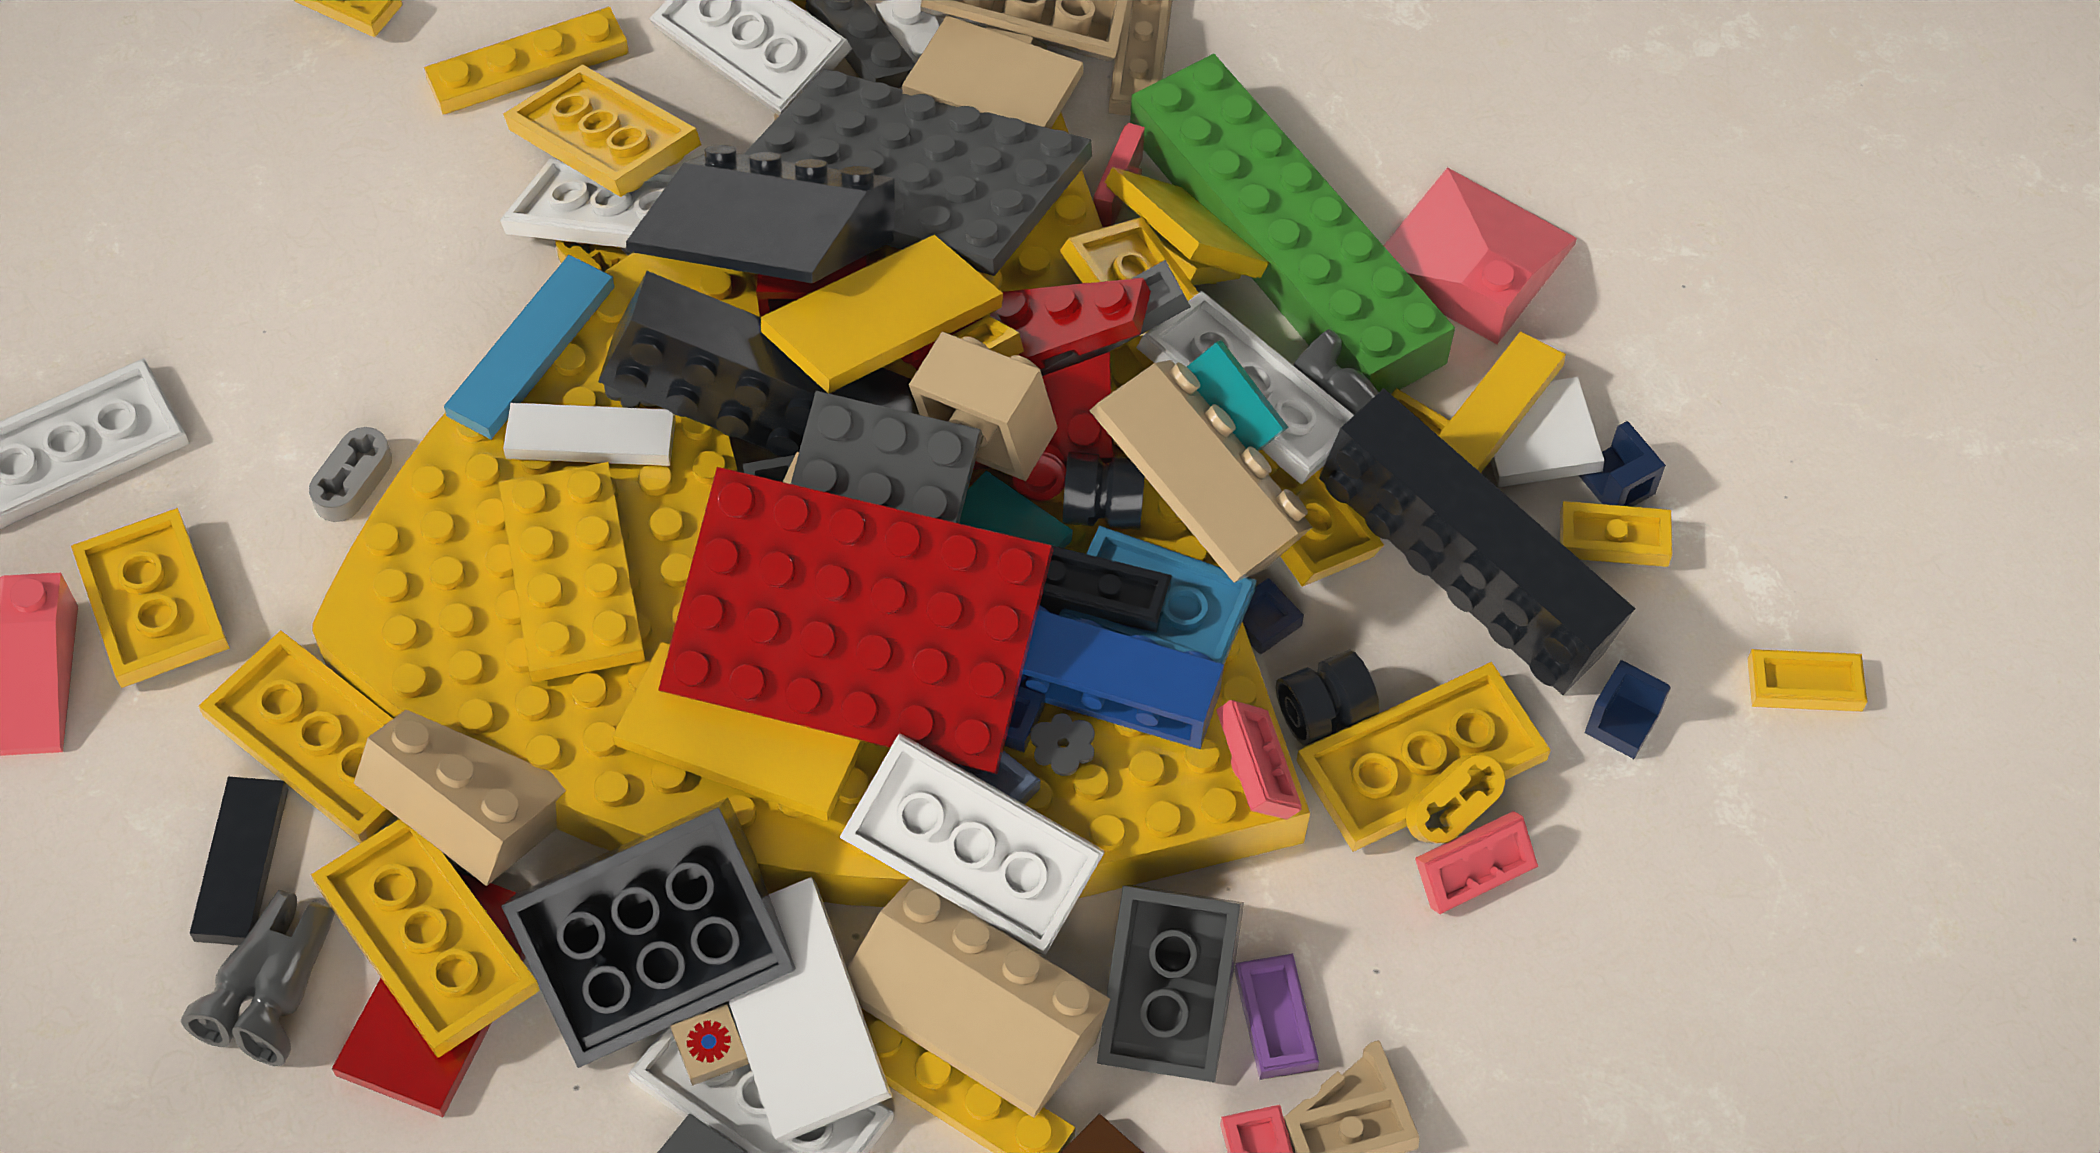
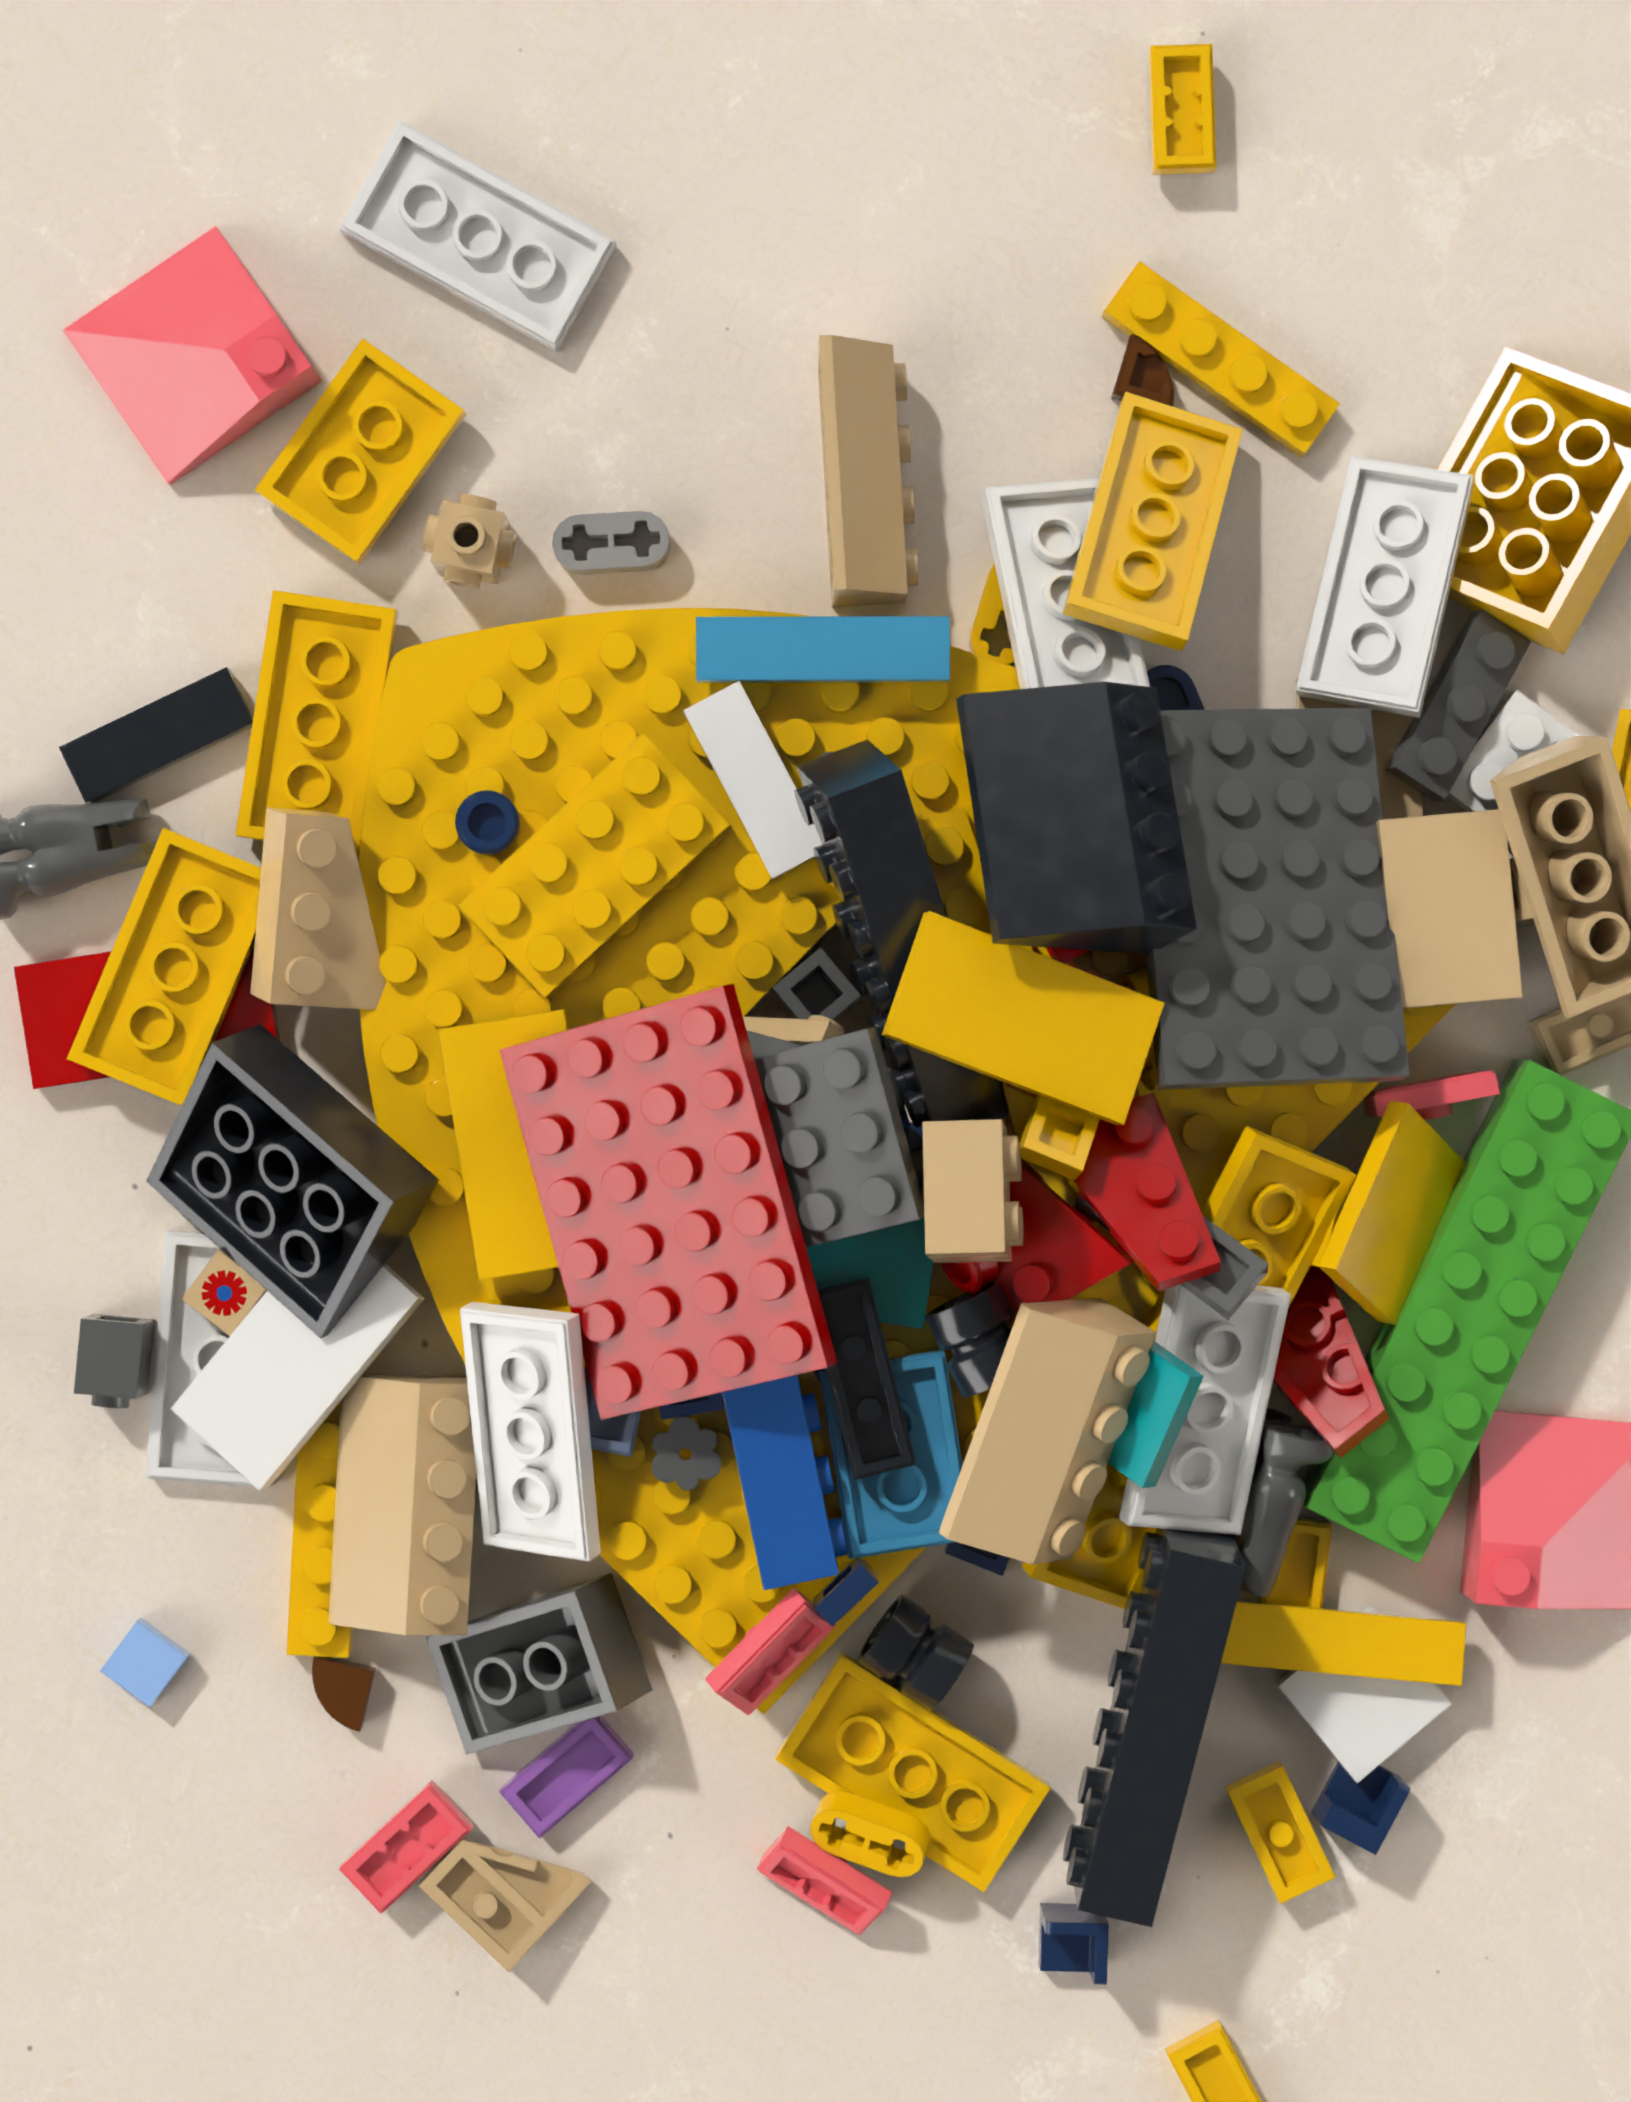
camera: 65 degrees right, 30 degrees up
(274, 553) = (480, 561): none -> tan brick
(419, 282) = (863, 472): none -> tan slope
(484, 624) = (487, 822): none -> dark blue tile
(492, 105) = (1143, 374): none -> reddish brown tile
(1241, 675) = (845, 1590): none -> dark blue tile
(1285, 309) = (1325, 1369): none -> red wing

